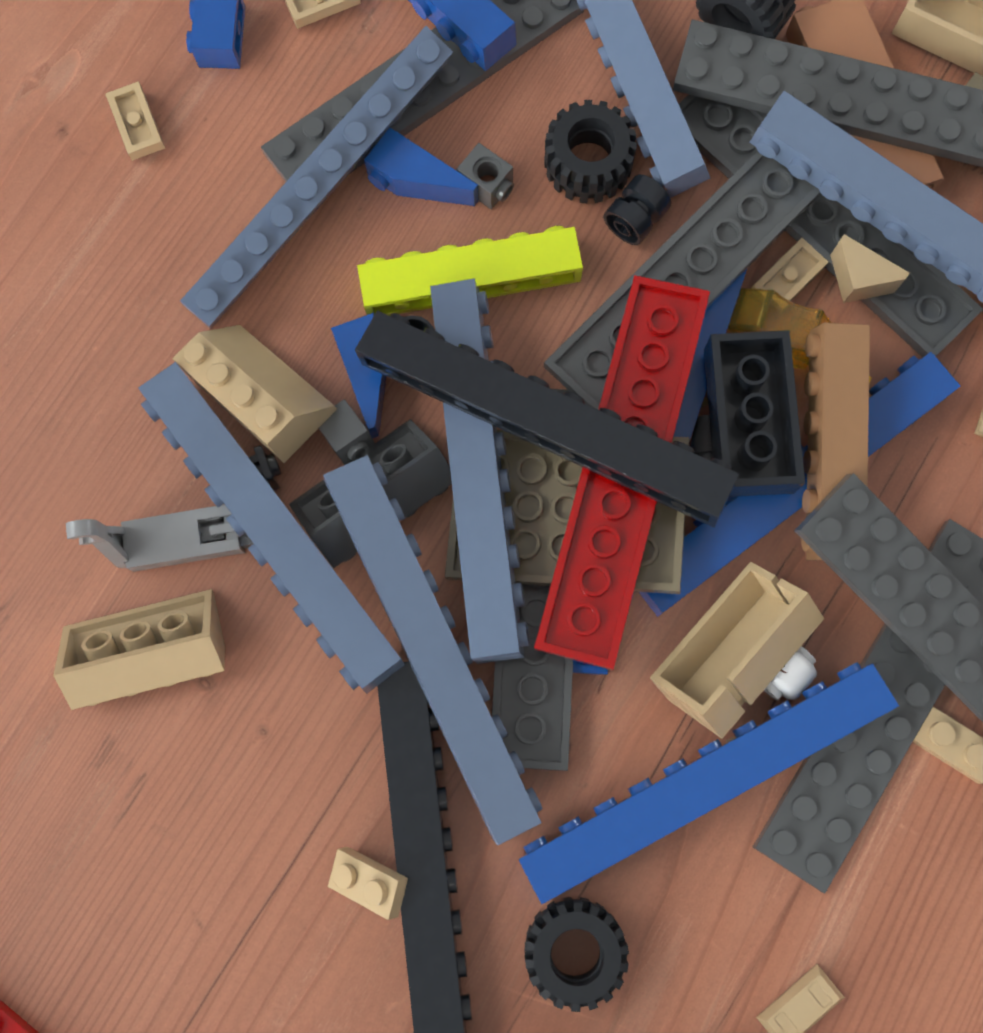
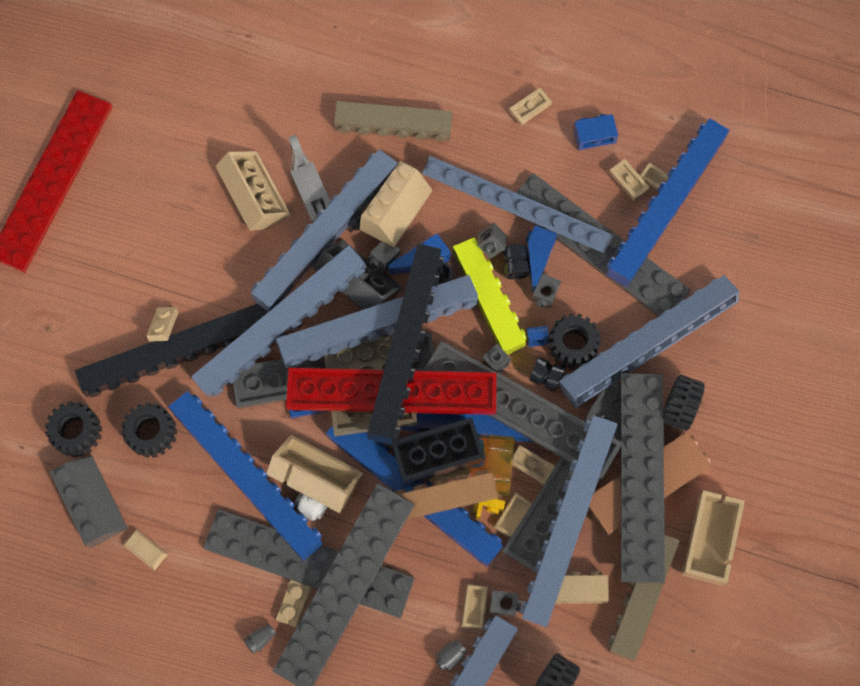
camera: 75 degrees right, 5 degrees down
(85, 359) = (393, 120): none -> dark tan brick
(370, 238) = (491, 240): none -> dark grey brick
(419, 212) = (515, 261): none -> black wheel
(561, 207) = (537, 336): none -> blue brick
(590, 286) = (496, 359): none -> dark grey brick
(863, 272) = (537, 498): tan slope -> none
(884, 338) = (512, 515): none -> tan tile

